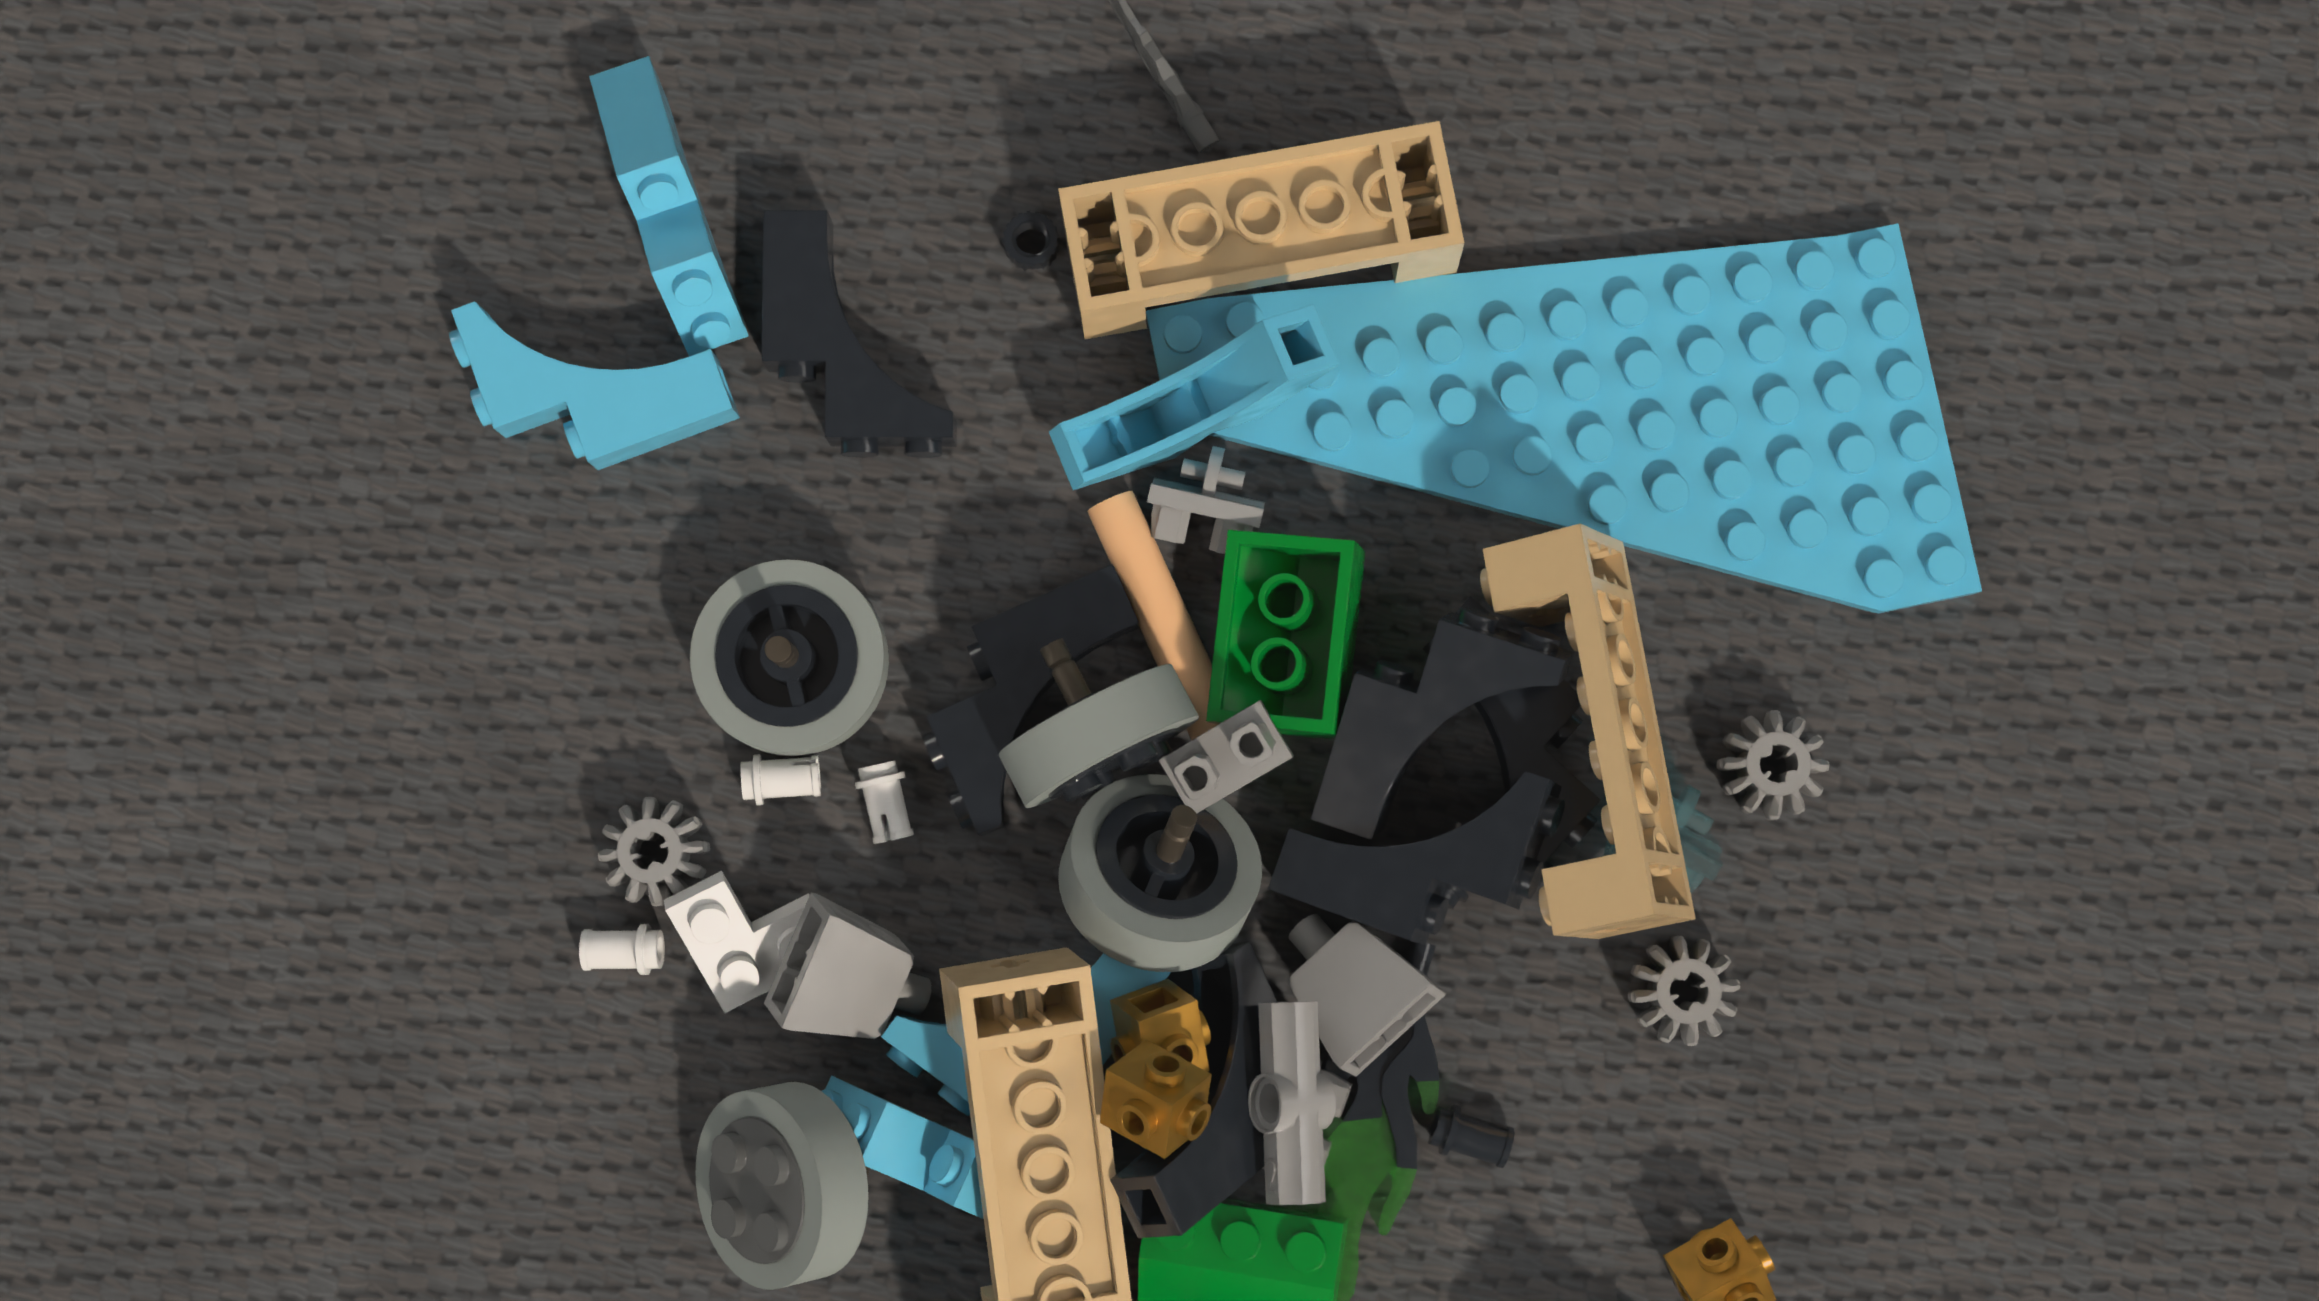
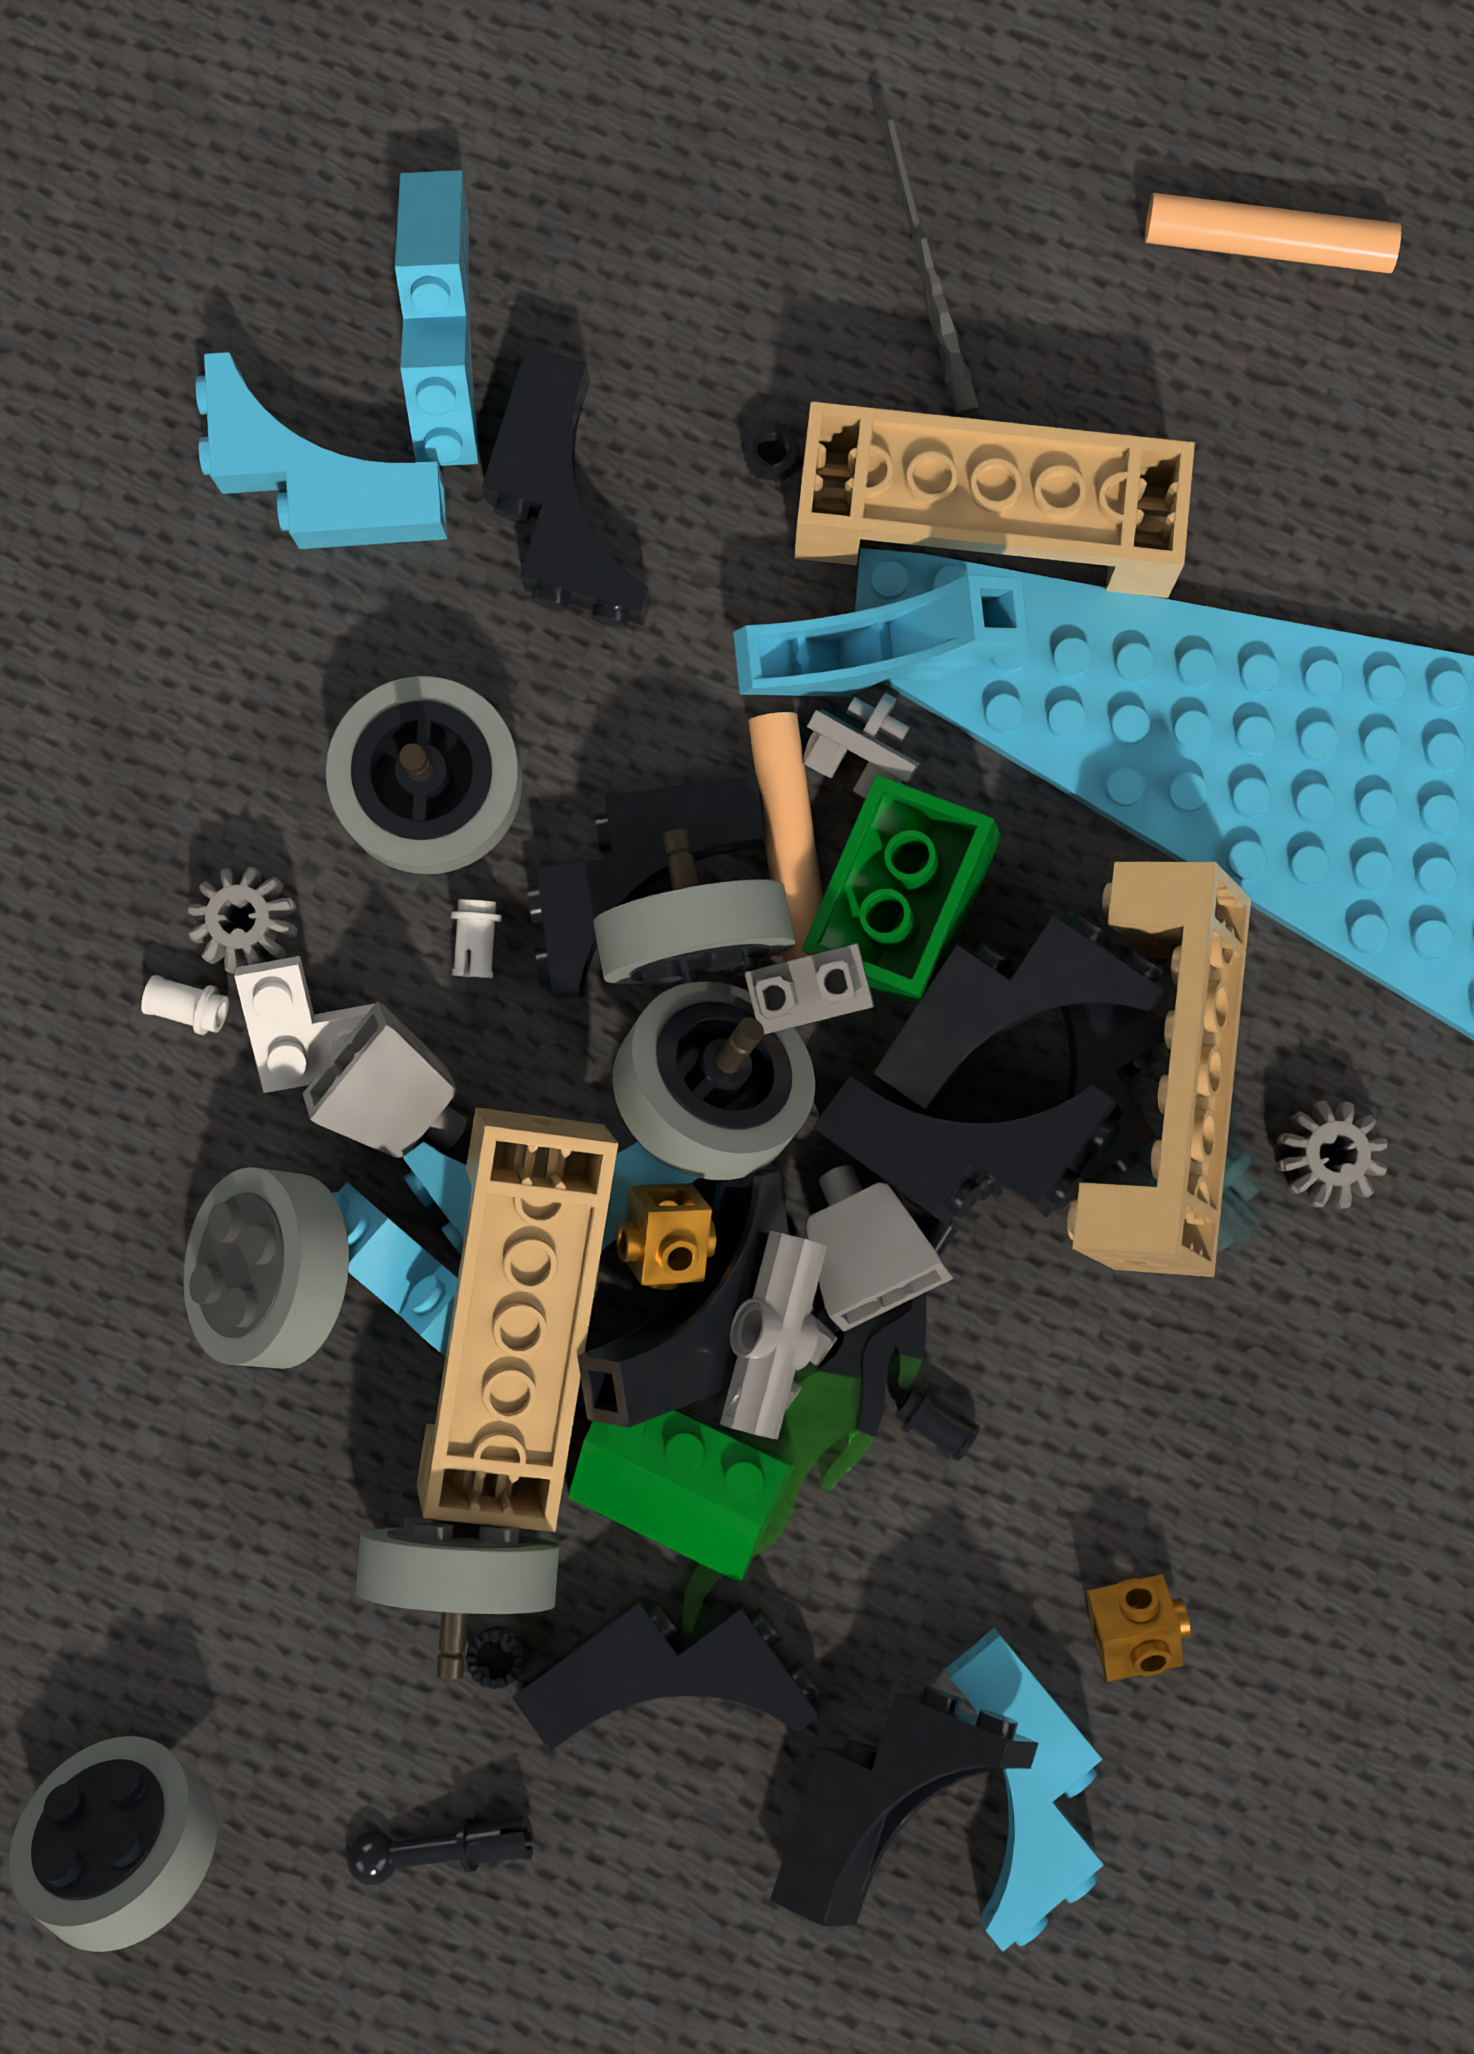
camera: 20 degrees right, 0 degrees up
(780, 778) = (382, 887): white pin -> none
(1156, 1098) = (643, 1289): pearl gold brick -> none
(1679, 968) = (1182, 1321): light grey gear -> none

